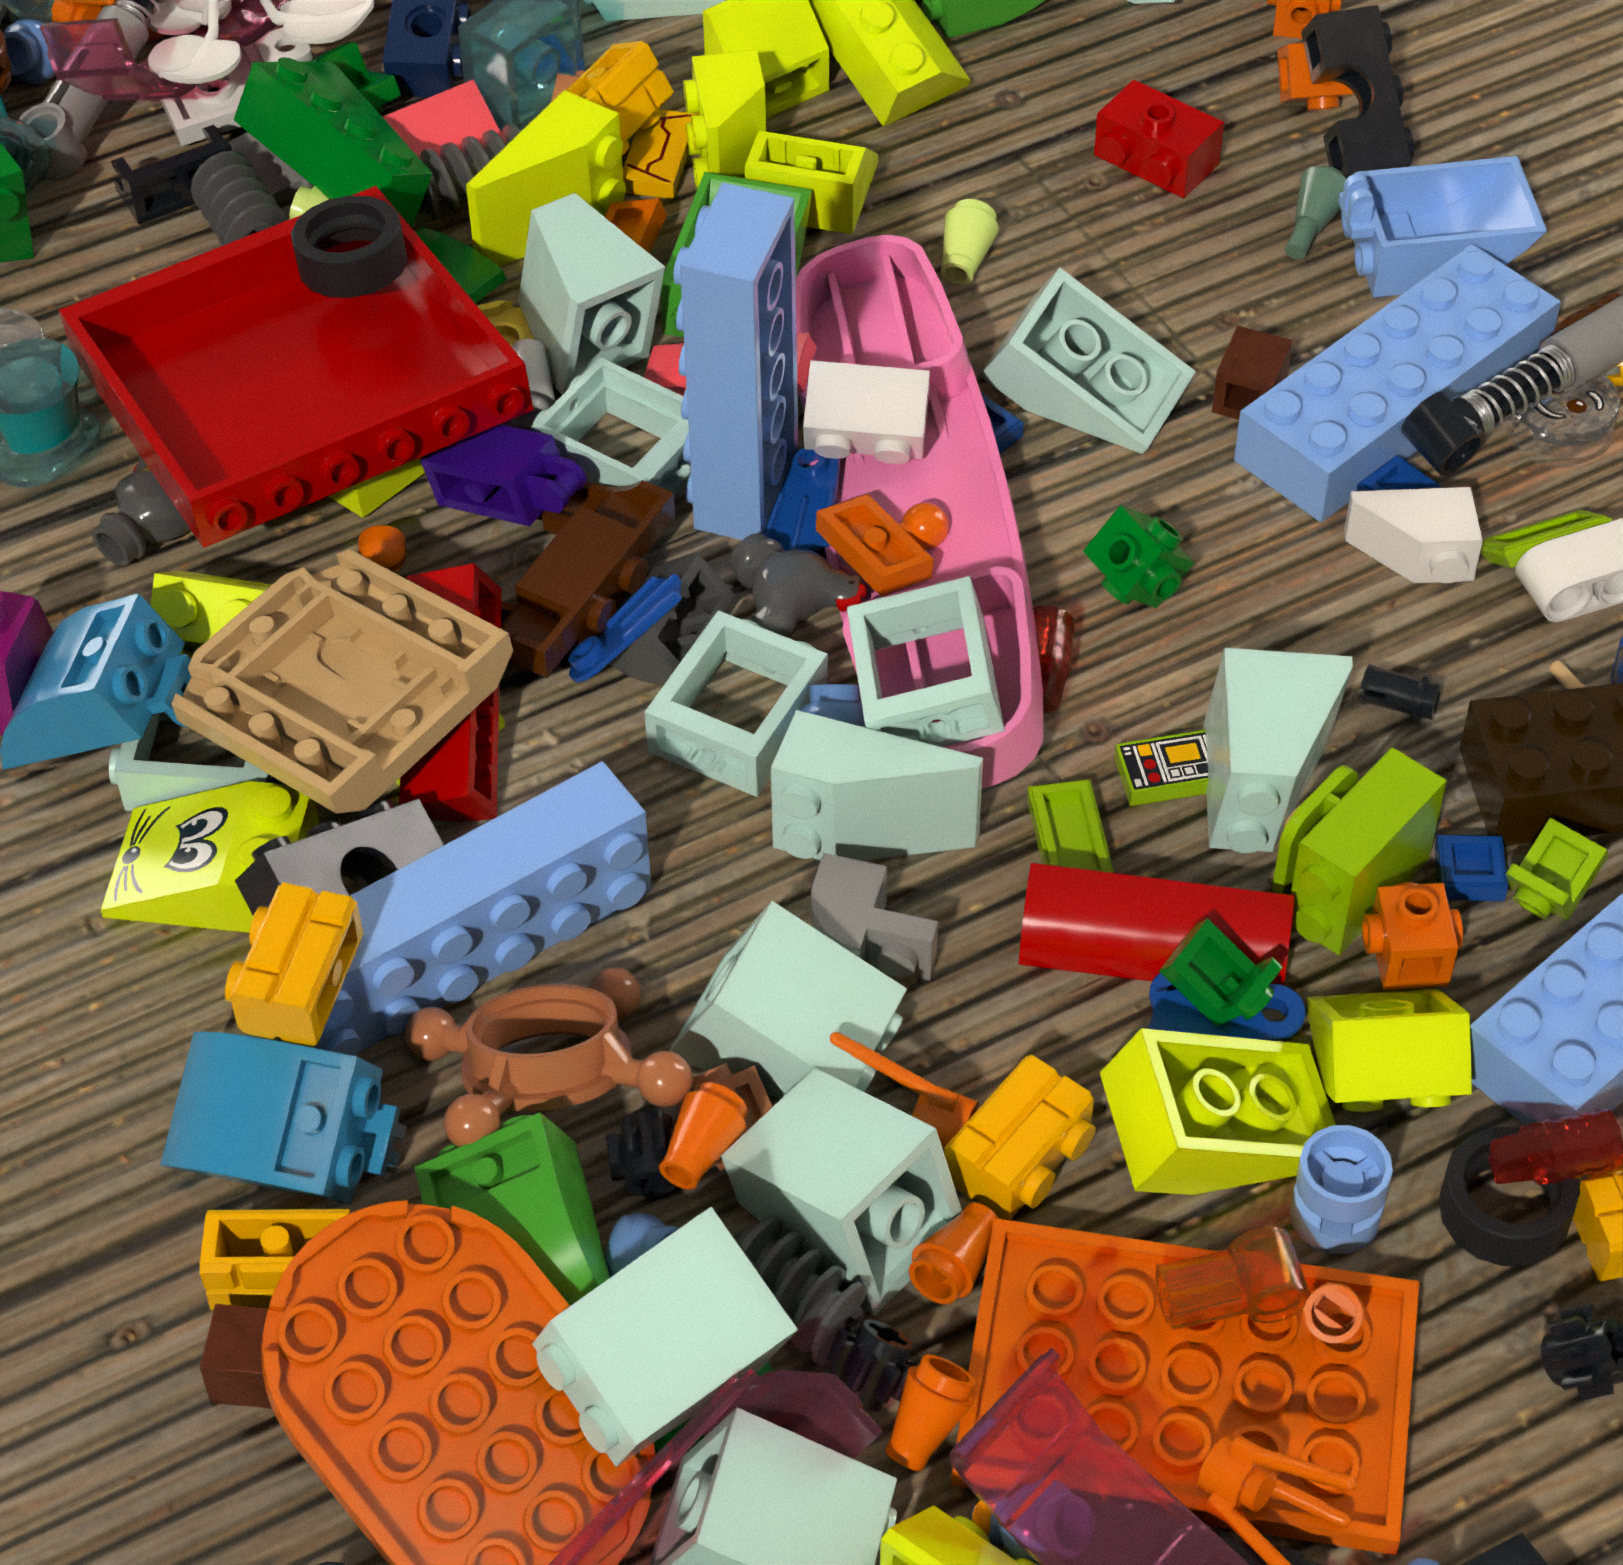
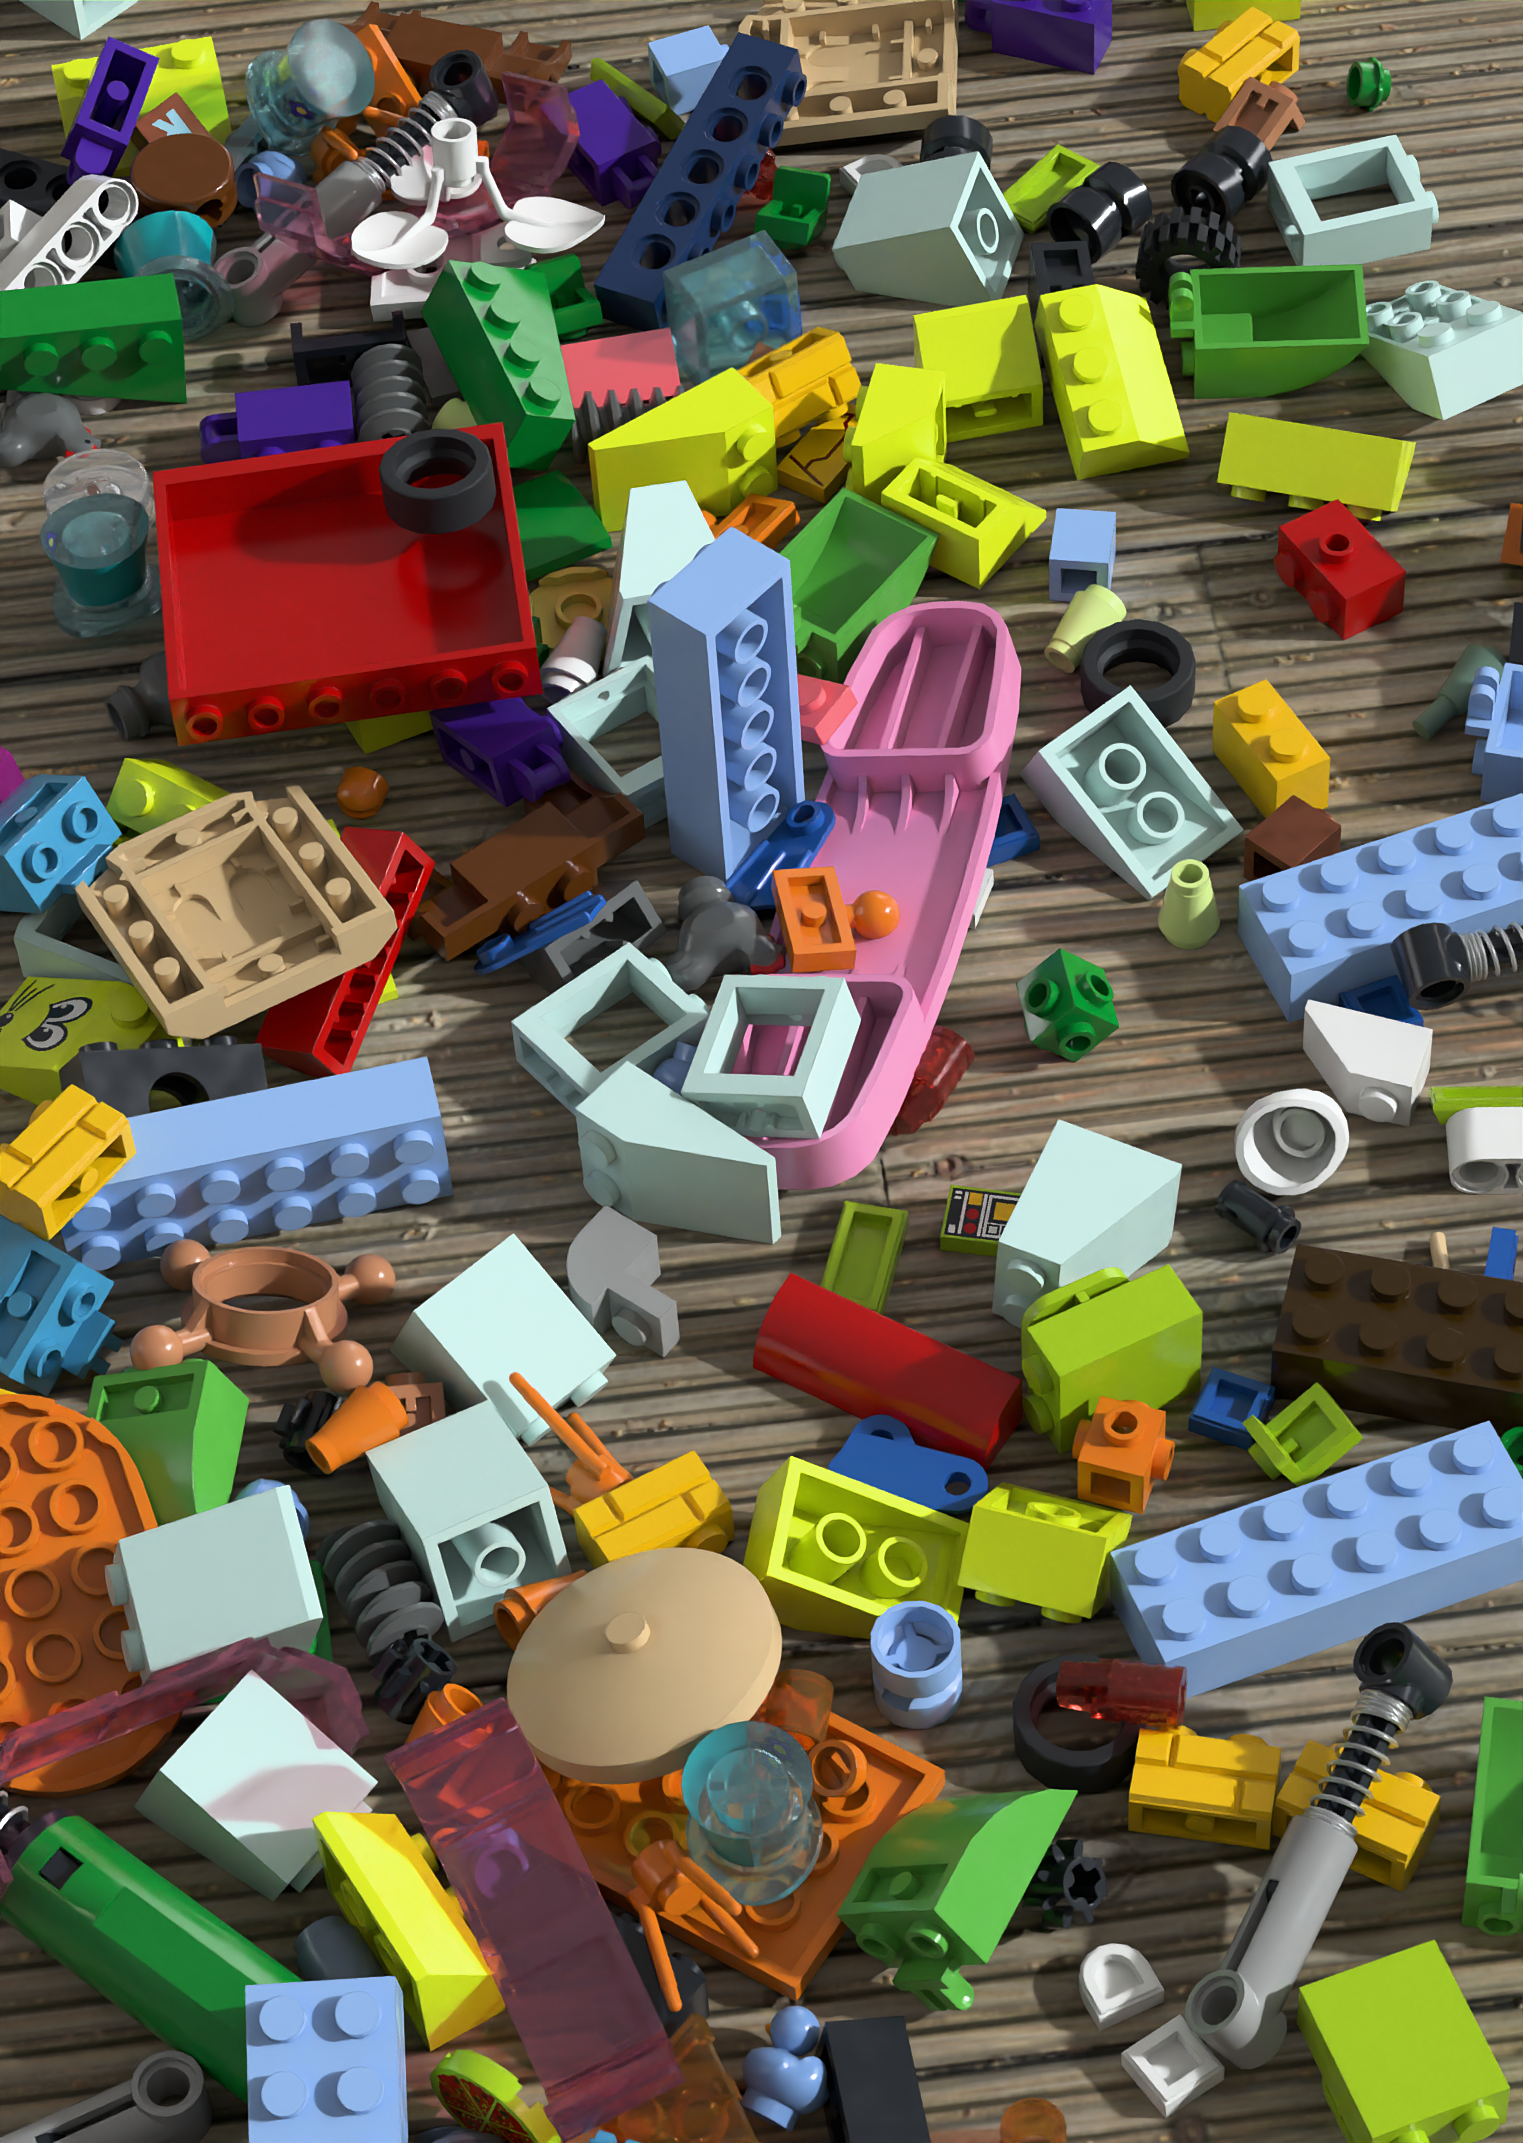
camera: 25 degrees right, 0 degrees up
(142, 246) = (280, 422): none -> dark purple brick
(866, 411) = (863, 783): white brick -> none
(931, 180) = (1081, 552): none -> light blue brick
(1025, 240) = (1146, 643): none -> black tyre
(1088, 58) = (1314, 465): none -> neon yellow slope
(1115, 1264) = (643, 1664): none -> tan dish
(1188, 299) = (1269, 749): none -> yellow brick
(1193, 445) = (1189, 906): none -> yellowish green cone
(1219, 975) = (907, 1431): green bracket -> none
(1292, 1376) = (752, 1811): none -> clear light blue hat
(1400, 616) = (1291, 1141): none -> white hat
(1499, 1389) = (948, 1886): none -> bright green piece

